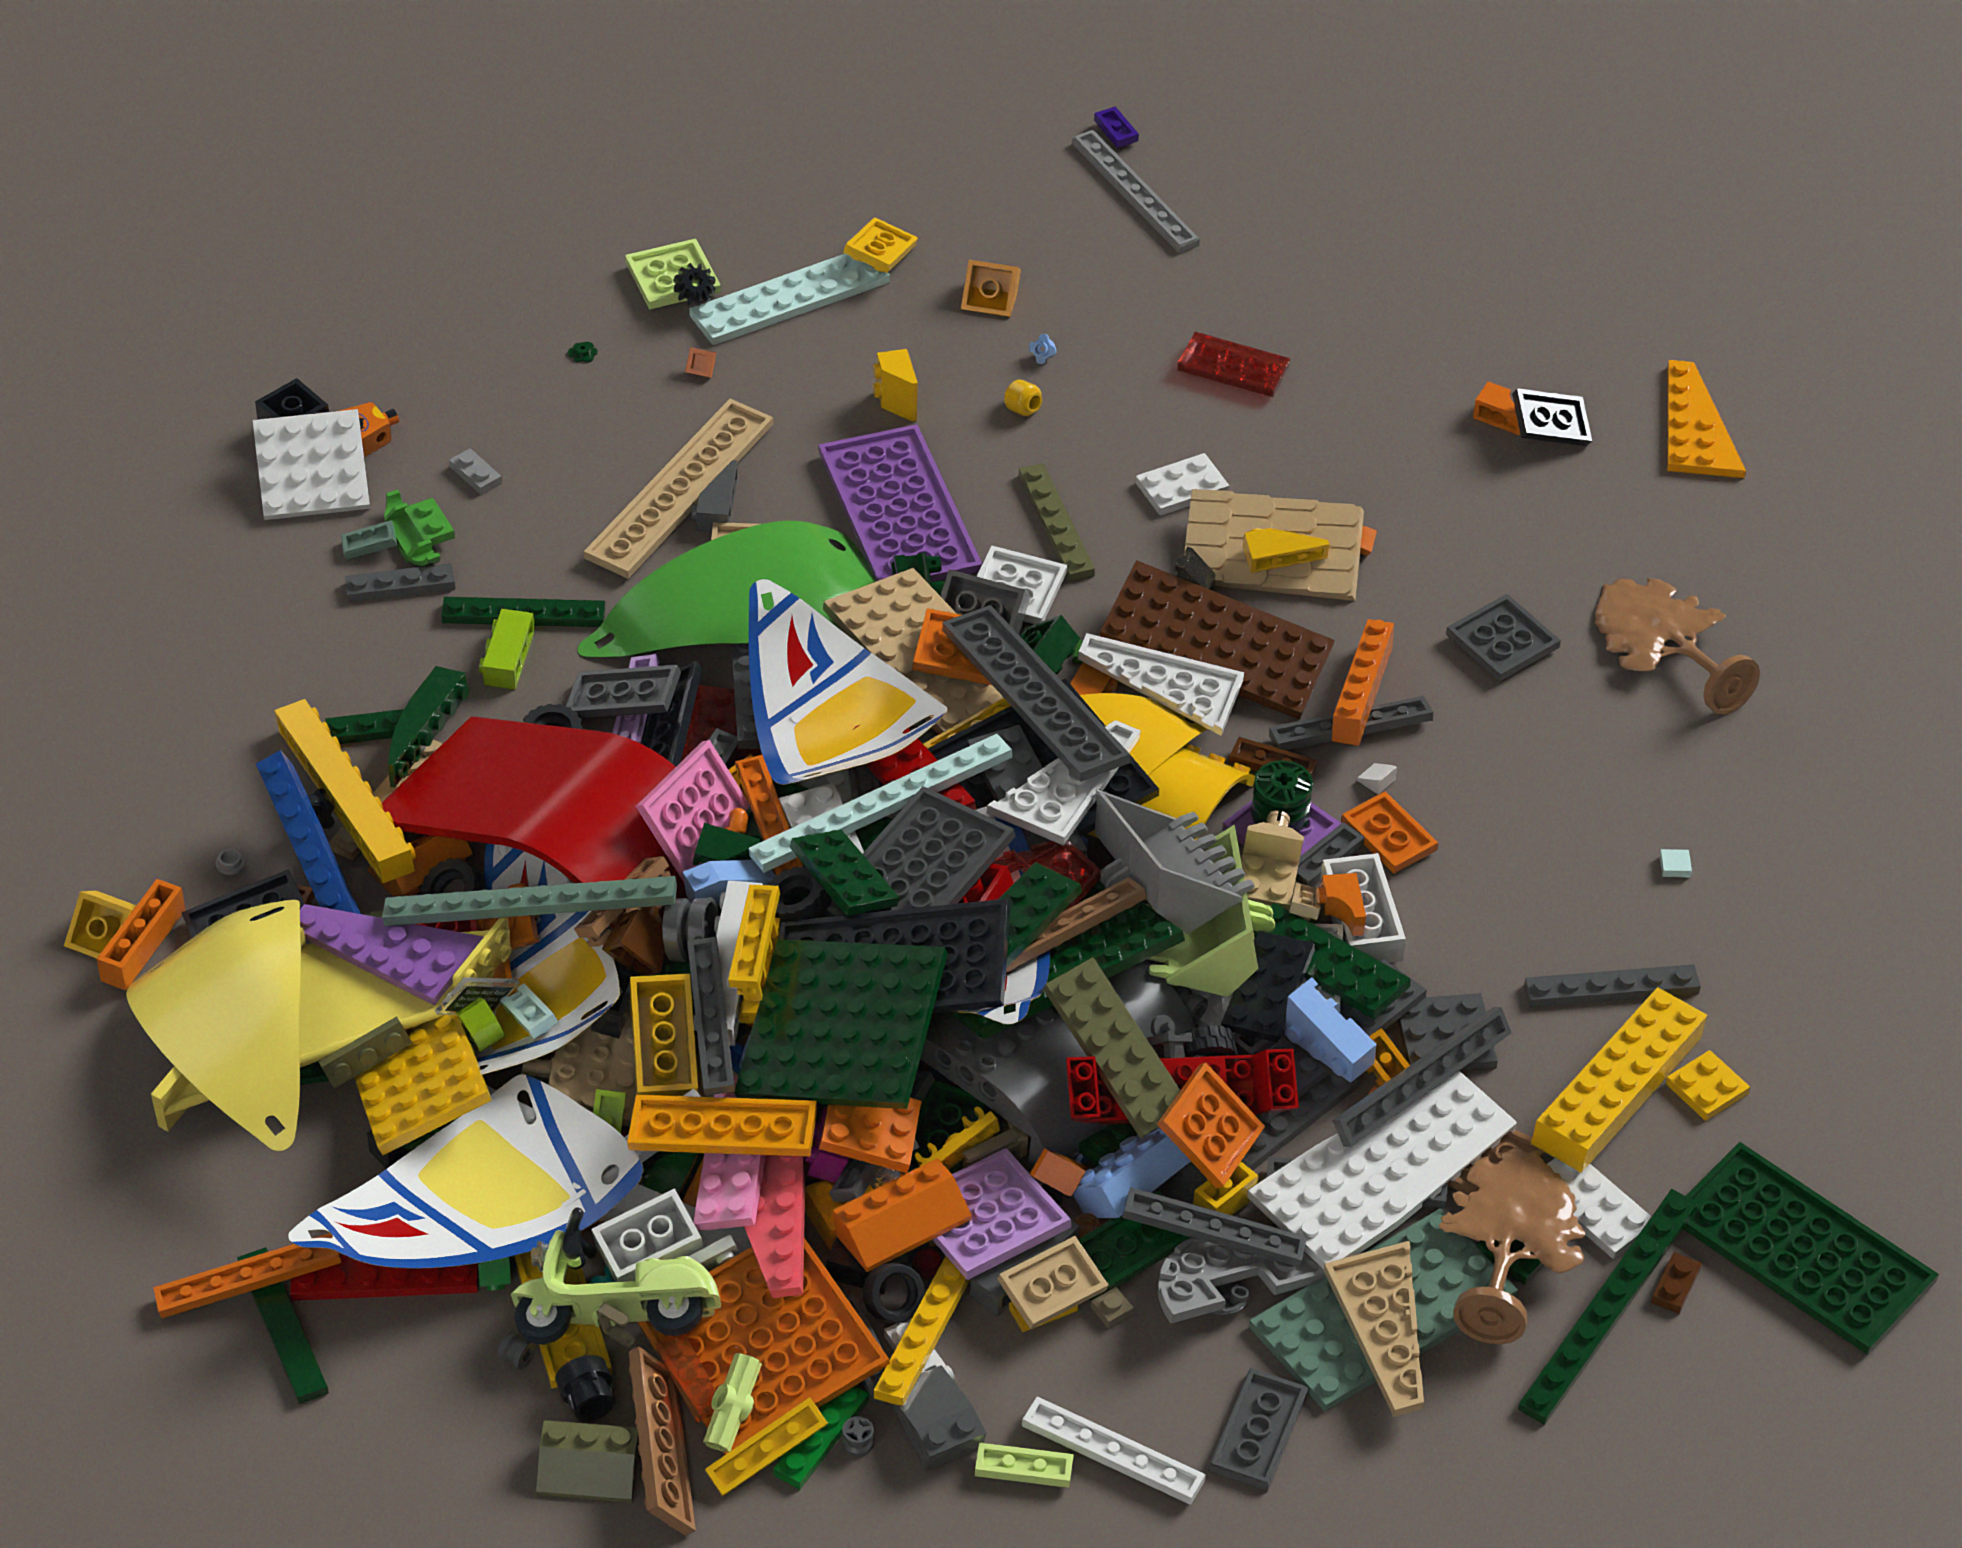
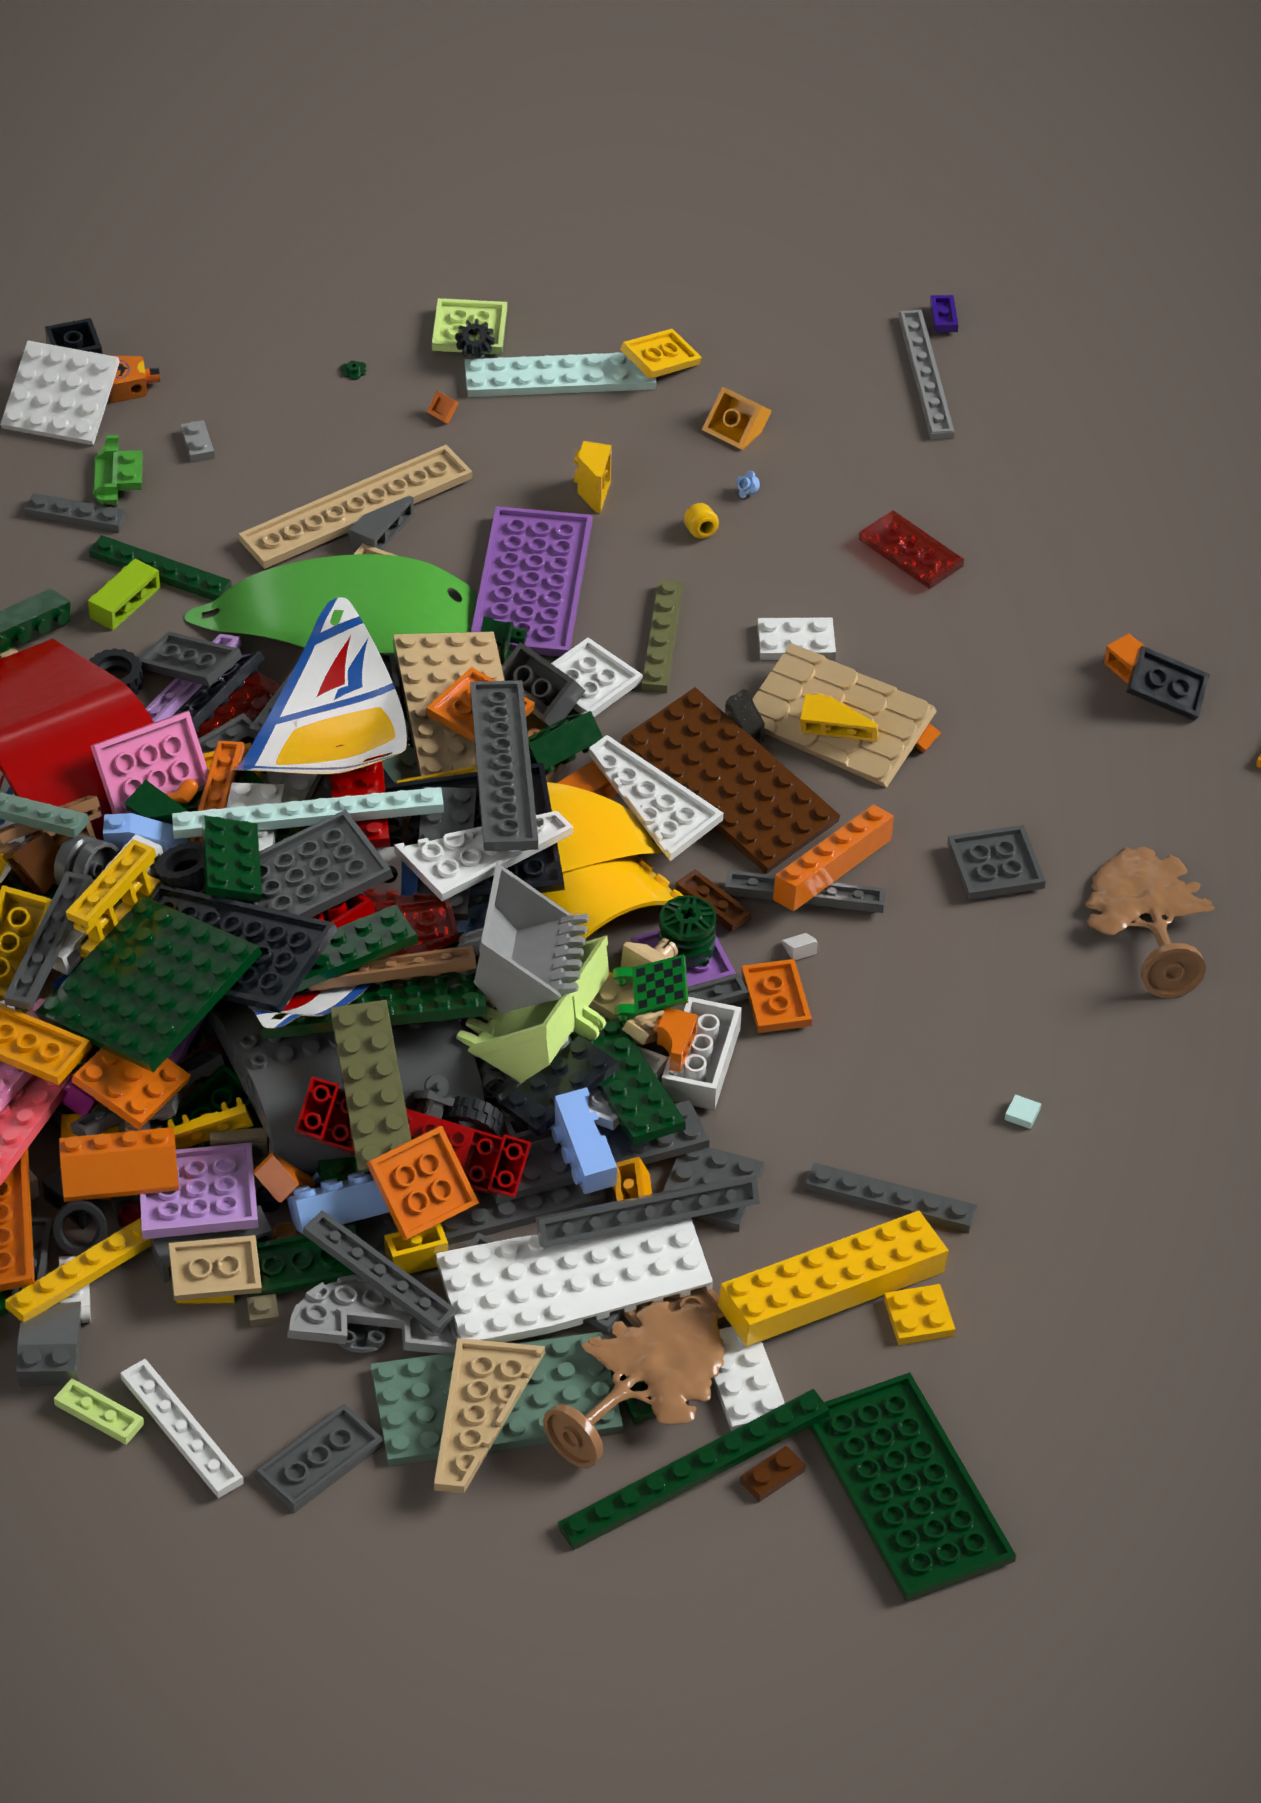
camera: 25 degrees right, 0 degrees up
(368, 540) = (71, 469): sand green plate -> none
(1302, 859) = (655, 986): none -> green flag

